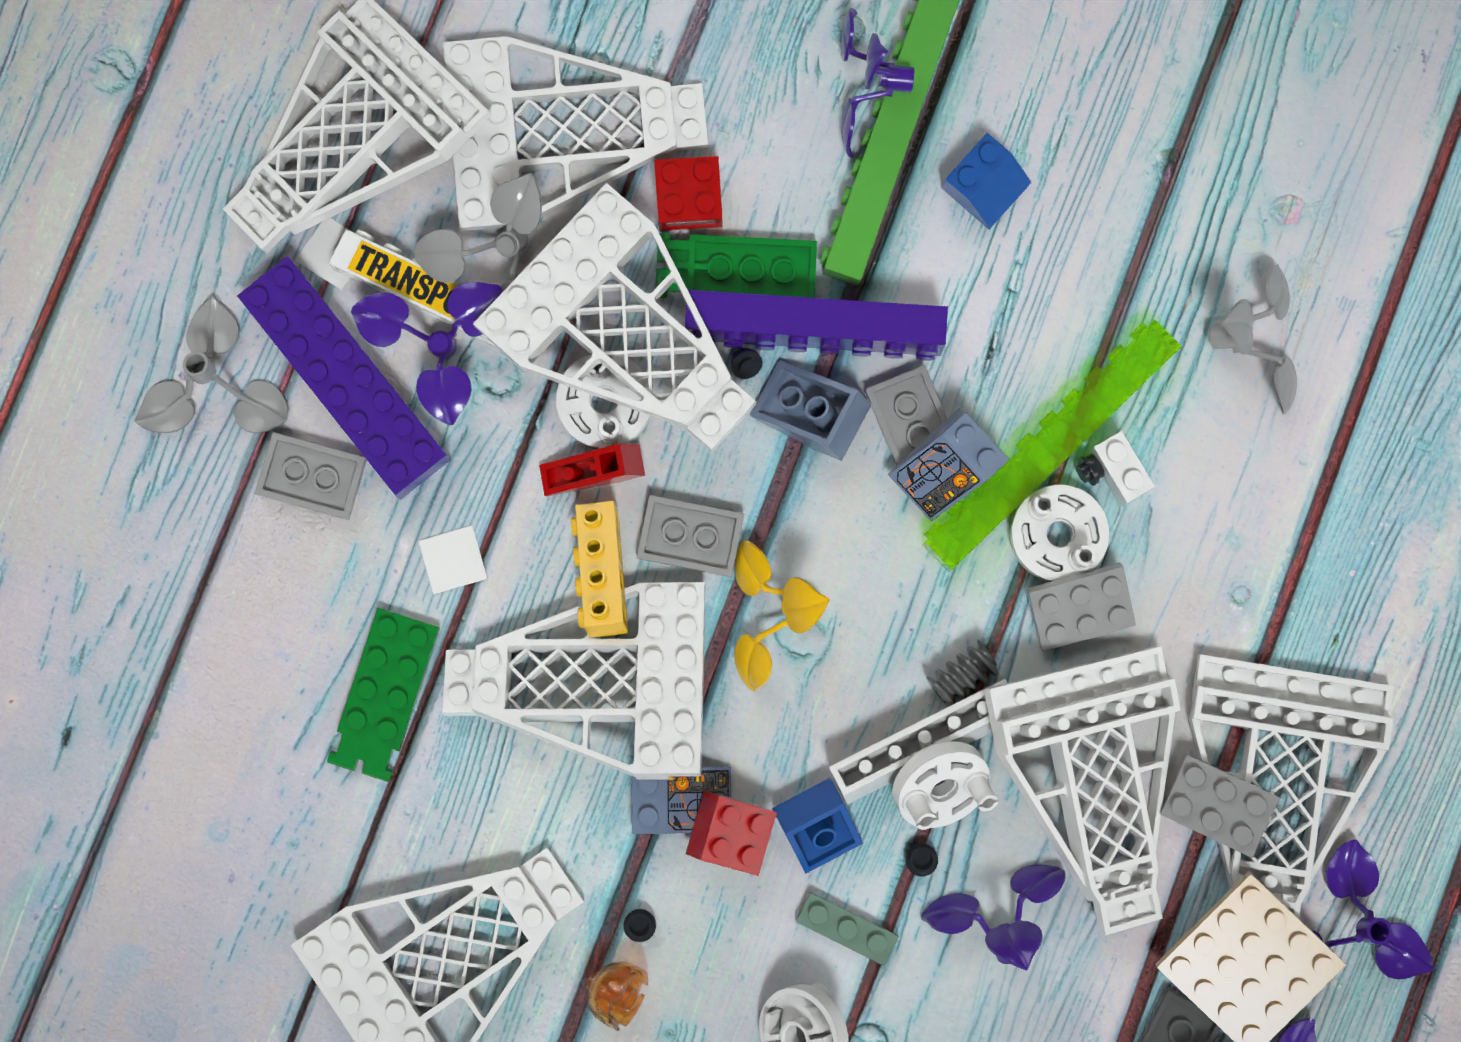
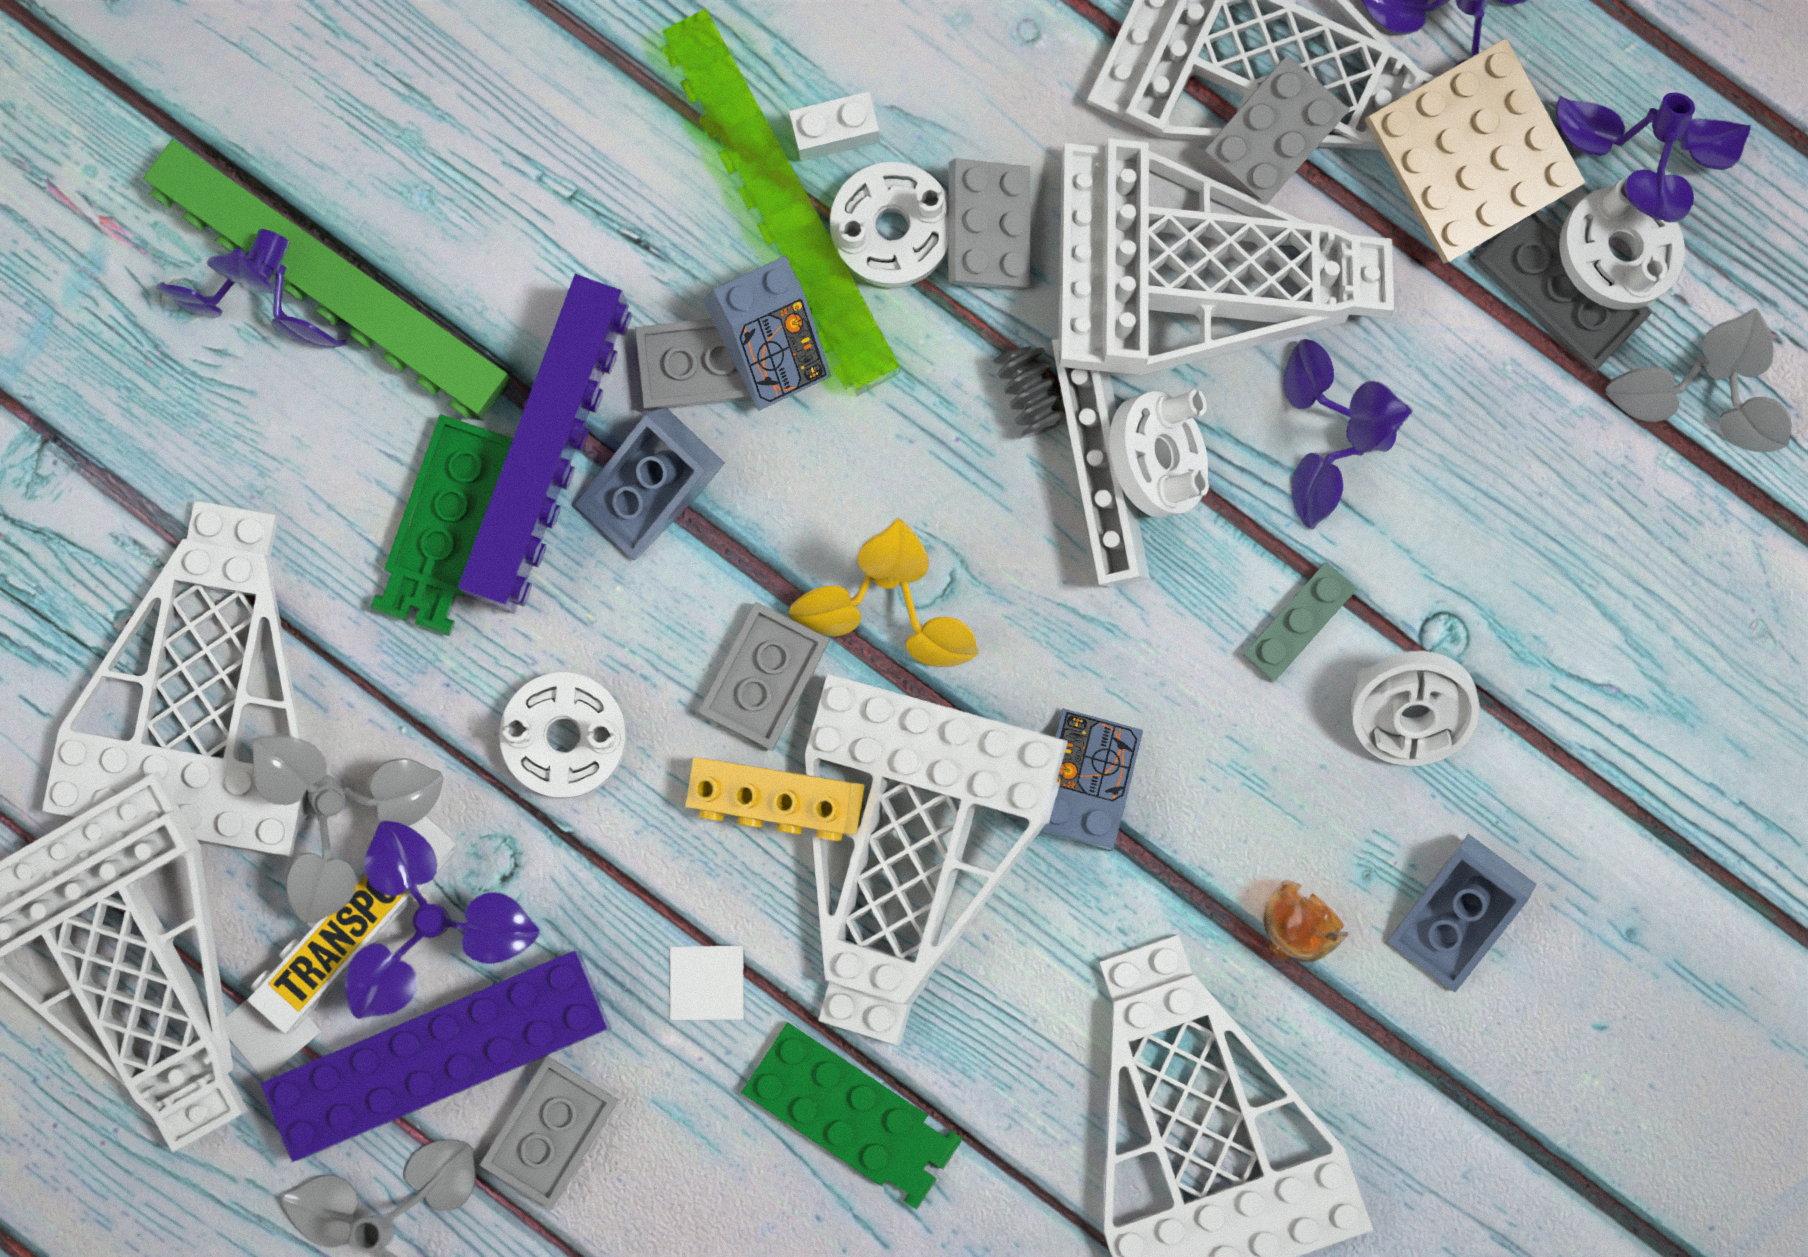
camera: 75 degrees left, 0 degrees up
(569, 277) = (398, 732): white wing -> none
(592, 469) = (645, 775): red slope -> none
(639, 925) = (1226, 874): black plate -> none
(688, 193) = (331, 555): red piece -> none
(731, 833) = (1145, 728): piece -> none
(746, 363) = (567, 546): black plate -> none
(817, 825) = (1164, 621): blue slope -> none
(921, 860) = (1241, 507): black plate -> none
(987, 181) = (428, 183): blue slope -> none
(1089, 469) = (823, 164): black plate -> none

